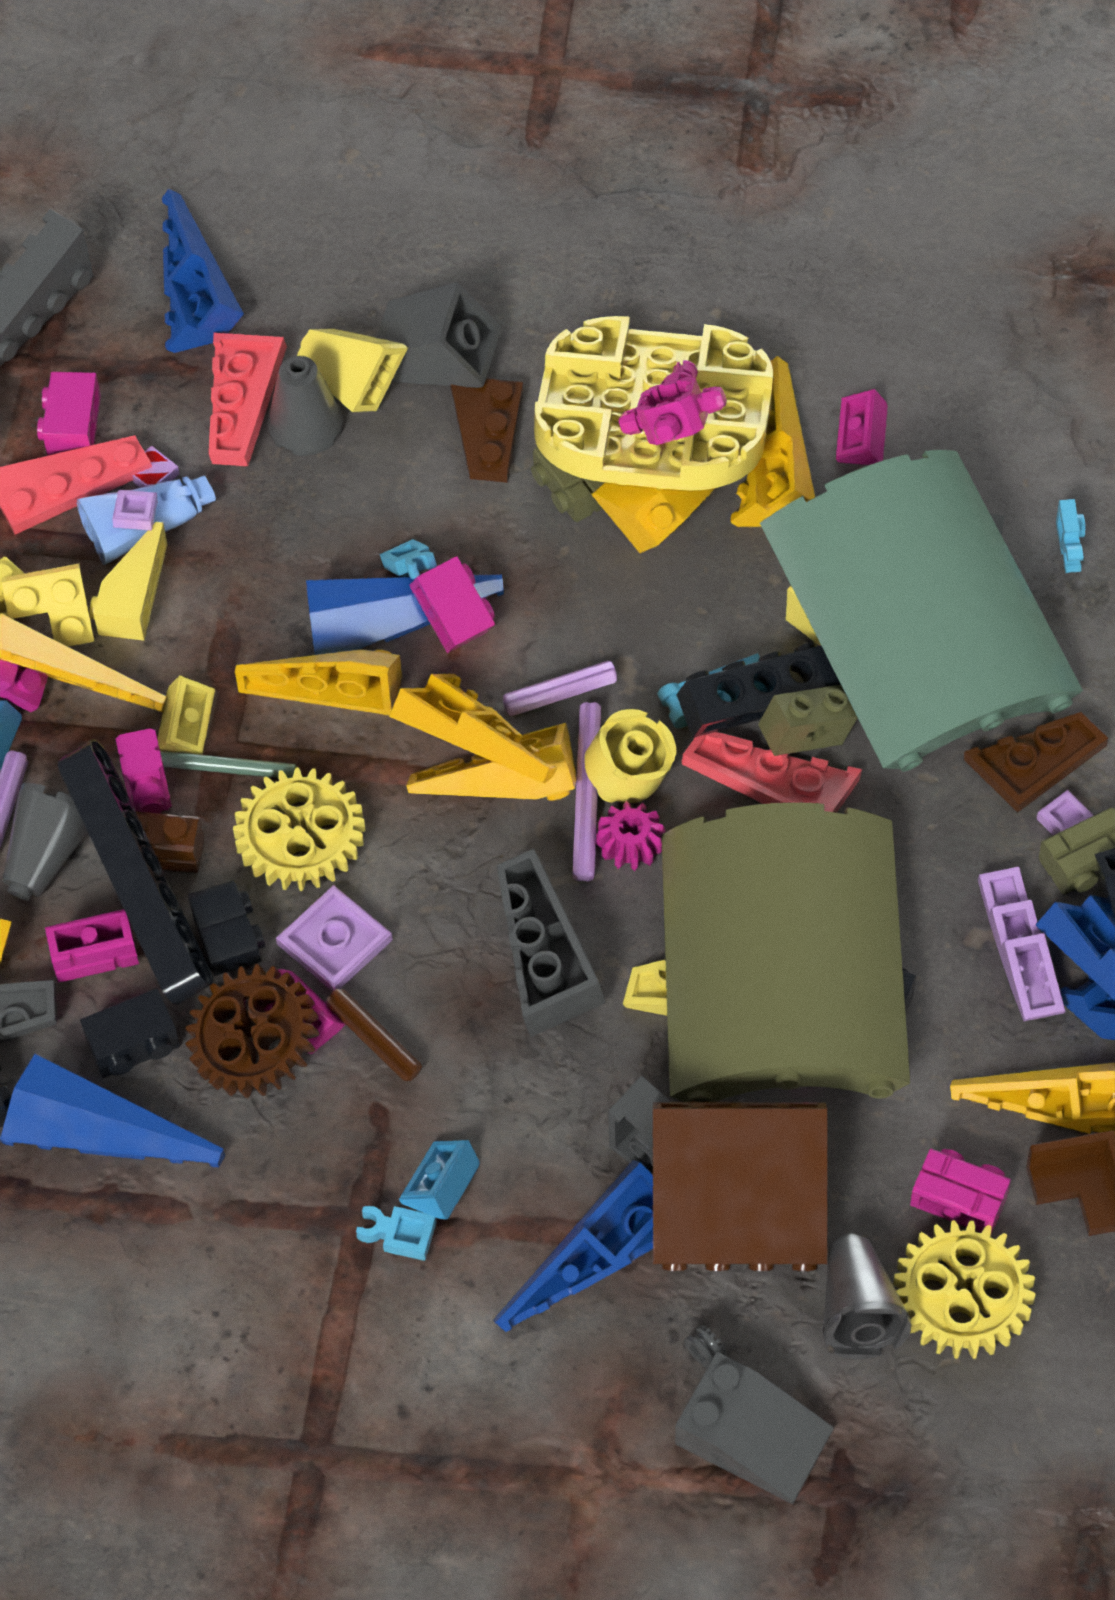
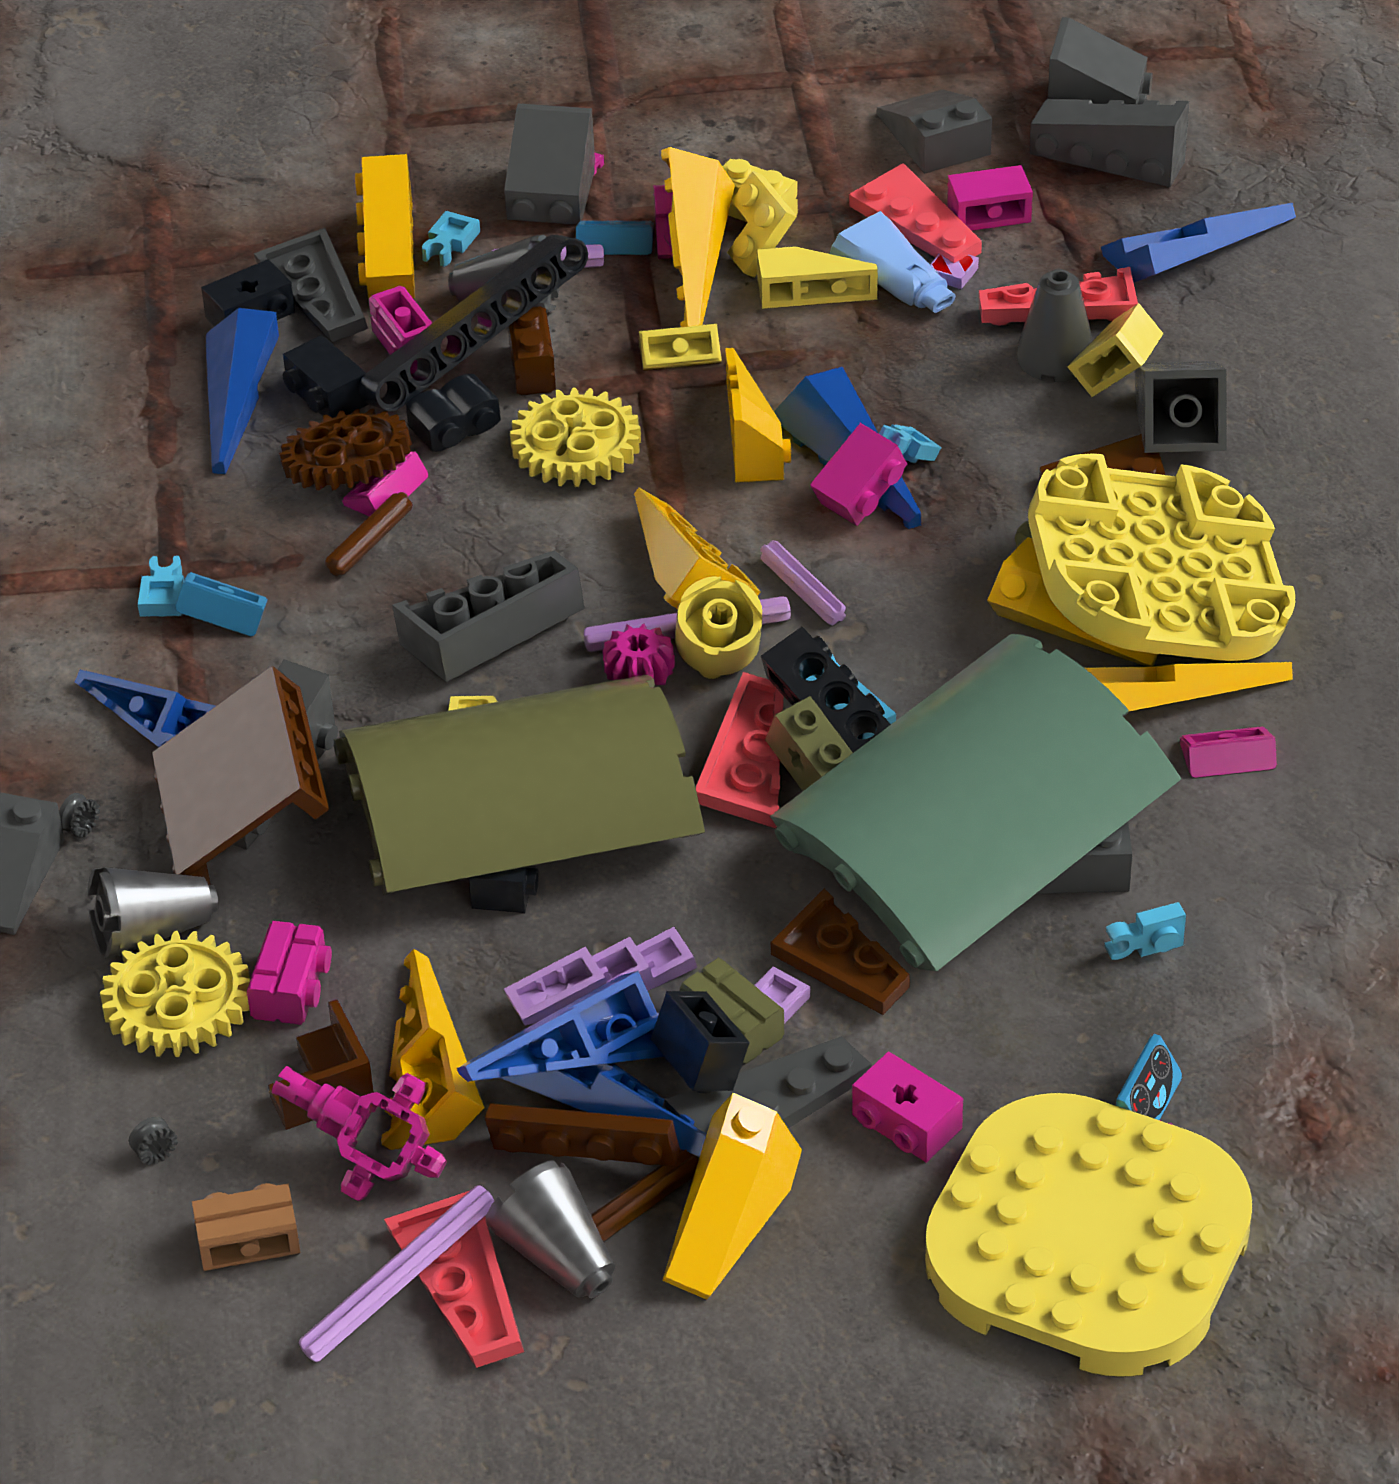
camera: 75 degrees right, 15 degrees down
(135, 510) = (880, 245): lavender tile -> none
(143, 771) = (592, 316): dark pink brick -> none
(226, 764) = (636, 377): sand green bar -> none
(334, 939) = (468, 491): lavender tile -> none
(463, 721) = (721, 501): yellow wedge -> none
(673, 407) = (1136, 544): dark pink piece -> none

